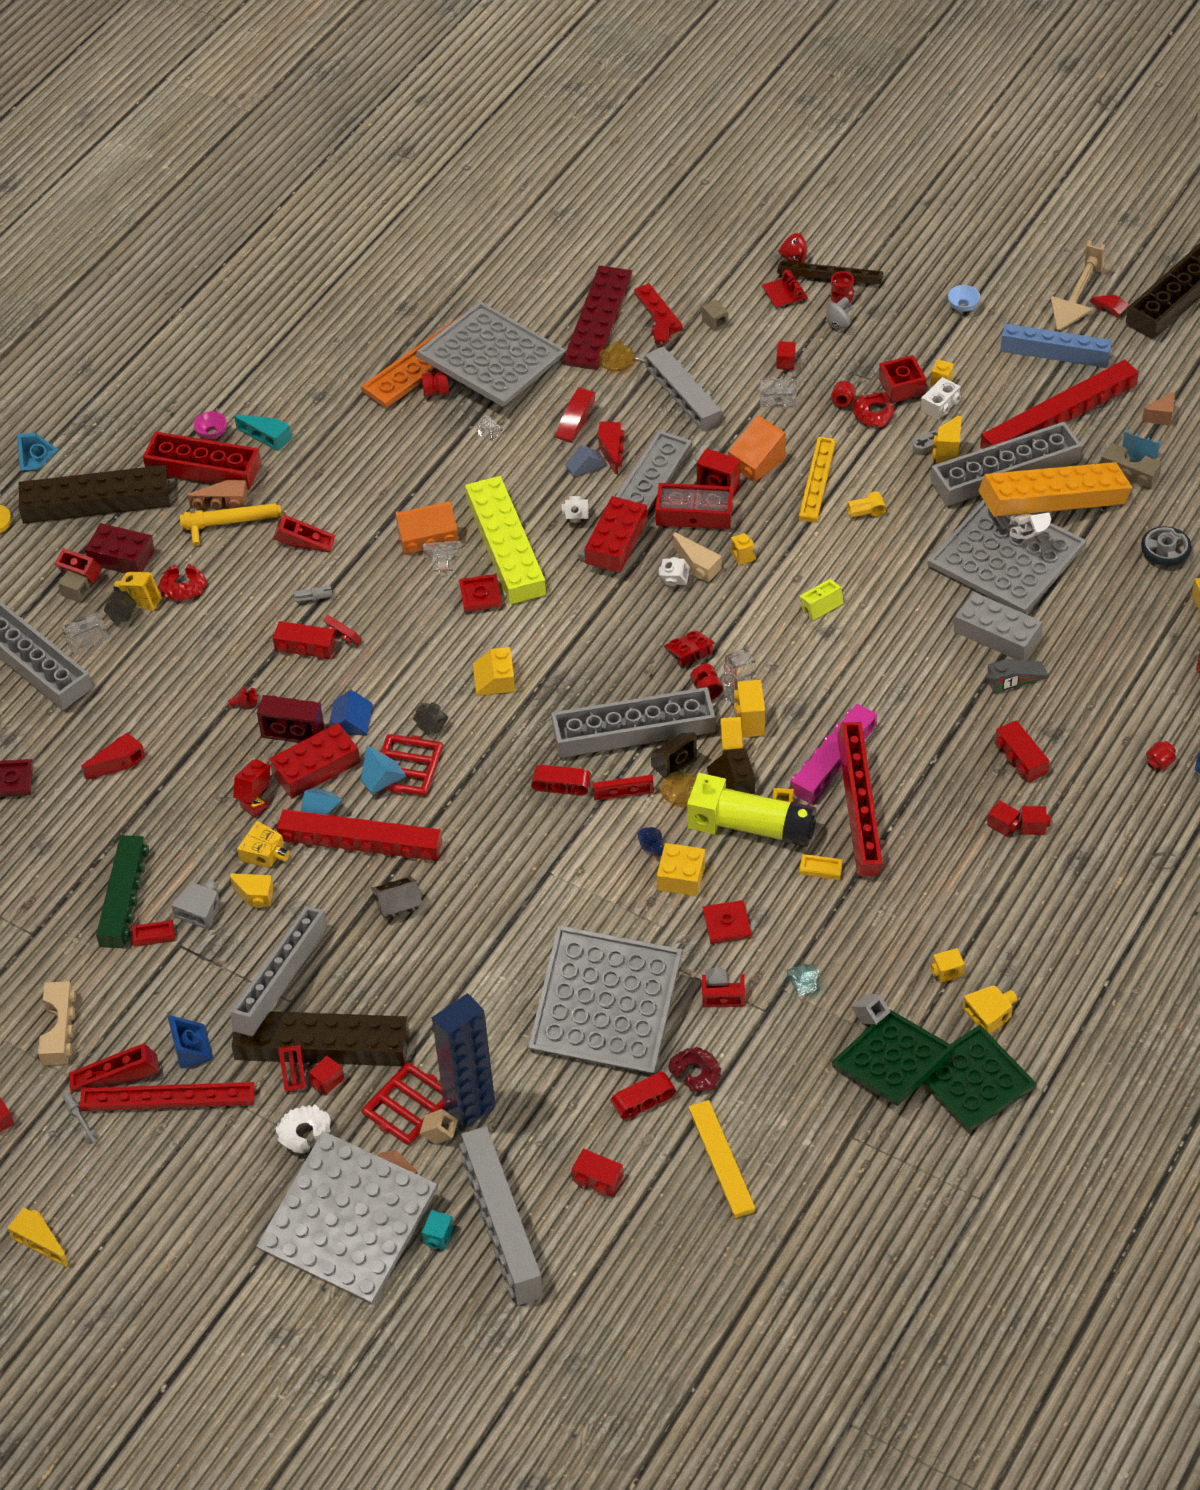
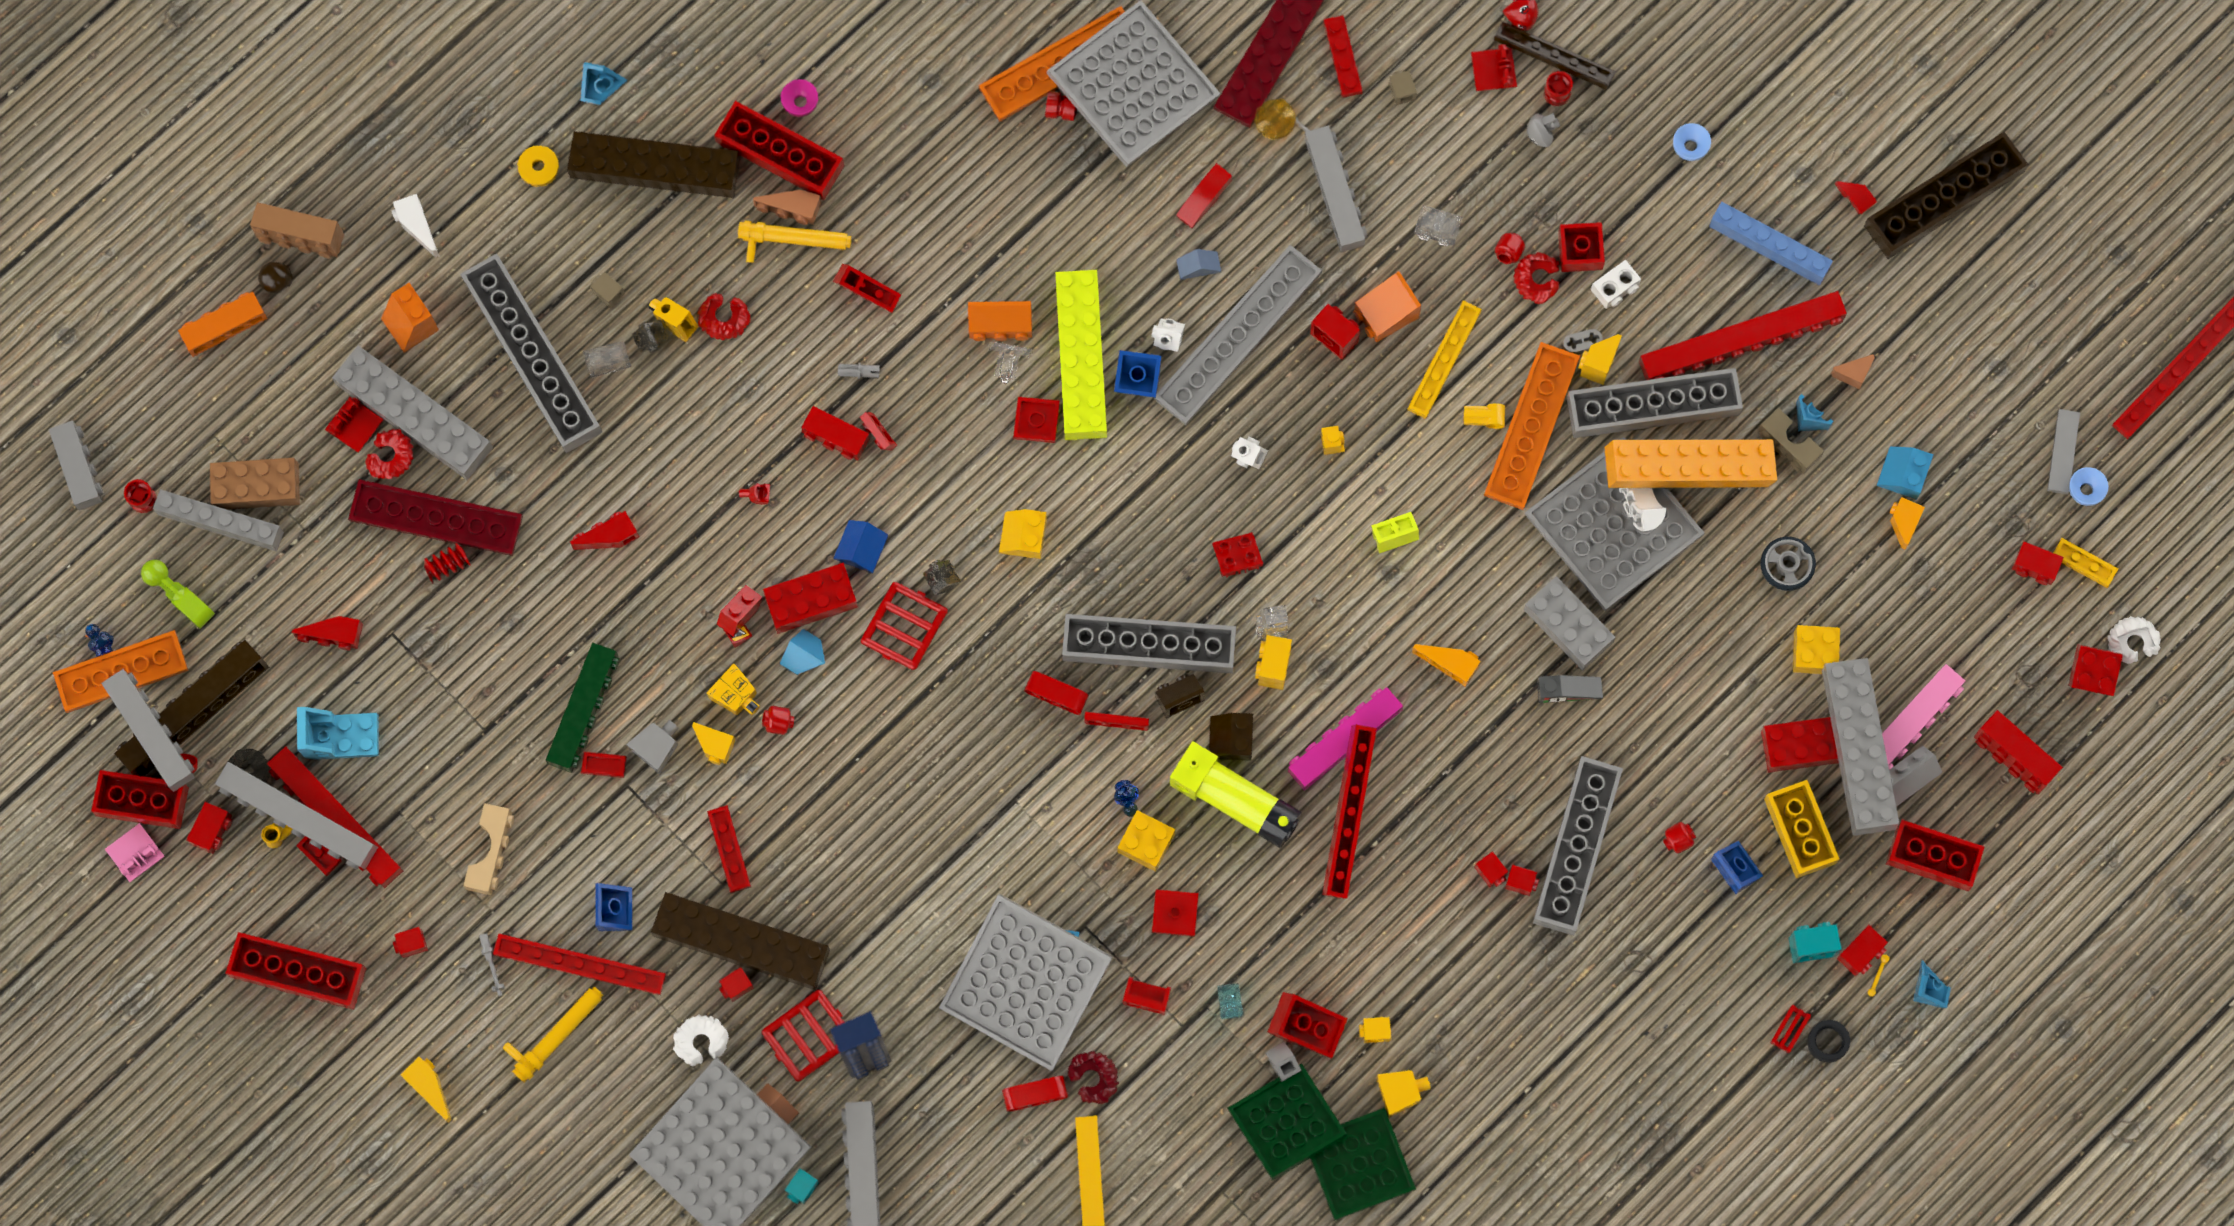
camera: 15 degrees right, 25 degrees up
(78, 564) = (616, 266): red brick -> none
(116, 1069) = (534, 920): red slope -> none
(120, 549) = (665, 253): dark red brick -> none
(141, 1186) = (534, 1059): none -> yellow cylinder
(265, 430) = (861, 122): teal slope -> none
(278, 971) = (714, 861): light grey brick -> none
(289, 718) = (796, 542): dark red brick -> none
(290, 1049) = (705, 955): red tile -> none
(300, 985) = (729, 849): none -> red tile
(309, 858) = (777, 720): none -> red head
(360, 835) = (834, 705): red brick -> none
(379, 770) = (873, 632): dark azure slope -> none
(397, 896) = (854, 791): slope -> none
(438, 1126) = (829, 1076): tan brick -> none
(488, 428) = (1105, 186): clear slope -> none
(558, 537) = (1137, 373): none -> blue slope
(597, 1172) = (967, 1167): red brick -> none
(610, 443) = (1232, 244): red slope -> none
(616, 534) = (1199, 388): red brick -> none
(661, 330) = (1335, 96): red brick -> none
(678, 787) = (1175, 735): clear yellow dish -> none
(694, 506) = (1296, 367): brick -> none
(702, 561) = (1282, 443): tan slope -> none
(706, 676) = (1241, 618): red wheel -> none
(716, 977) = (1145, 976): light grey slope -> none
(731, 734) = (1243, 695): yellow slope -> none
(783, 794) = (1276, 780): yellow slope -> none
(786, 355) = (1464, 172): red brick -> none
(821, 867) = (1289, 873): yellow tile -> none
(881, 974) = (1307, 1025): none -> red slope
(903, 677) = (1452, 662): none -> light orange slope
(909, 505) = (1531, 426): none -> orange plate
(941, 369) = (1628, 250): yellow brick -> none
(1021, 751) = (1538, 790): red brick -> none
(1069, 311) = (1804, 191): tan piece -> none
(1074, 781) = (1577, 845): none -> light grey brick

